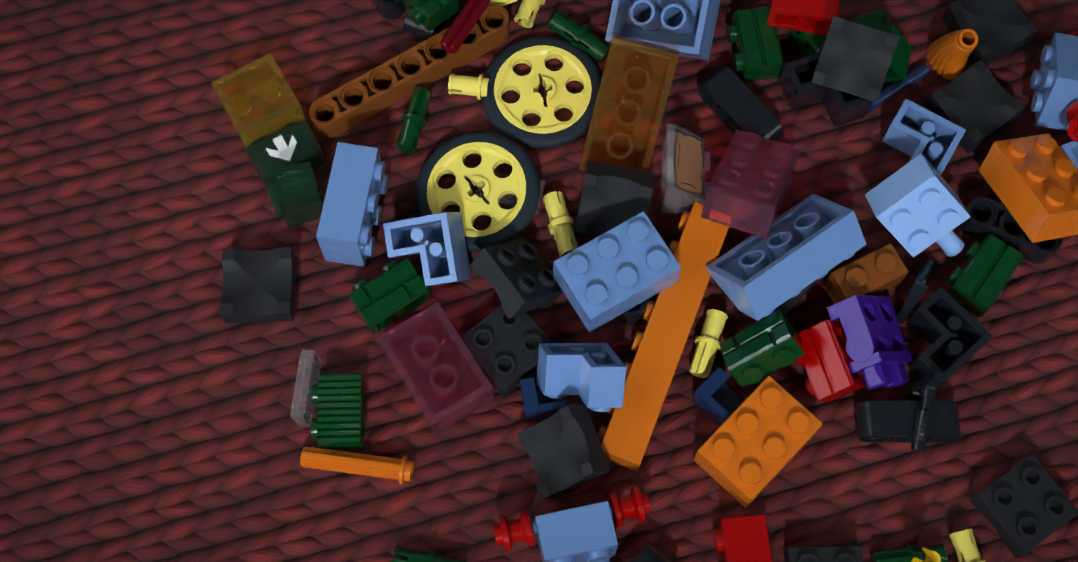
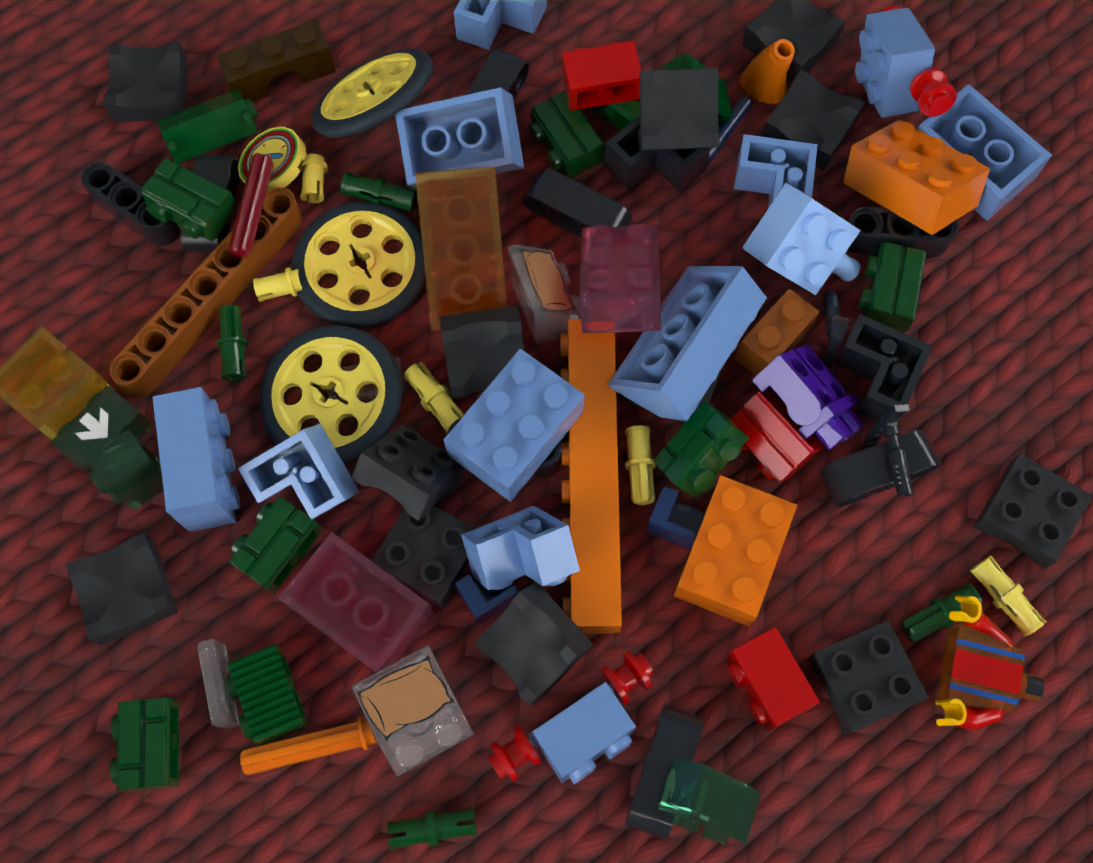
camera: 20 degrees left, 0 degrees up
(234, 413) = (146, 745): none -> dark green brick
(448, 466) = (412, 710): none -> slope

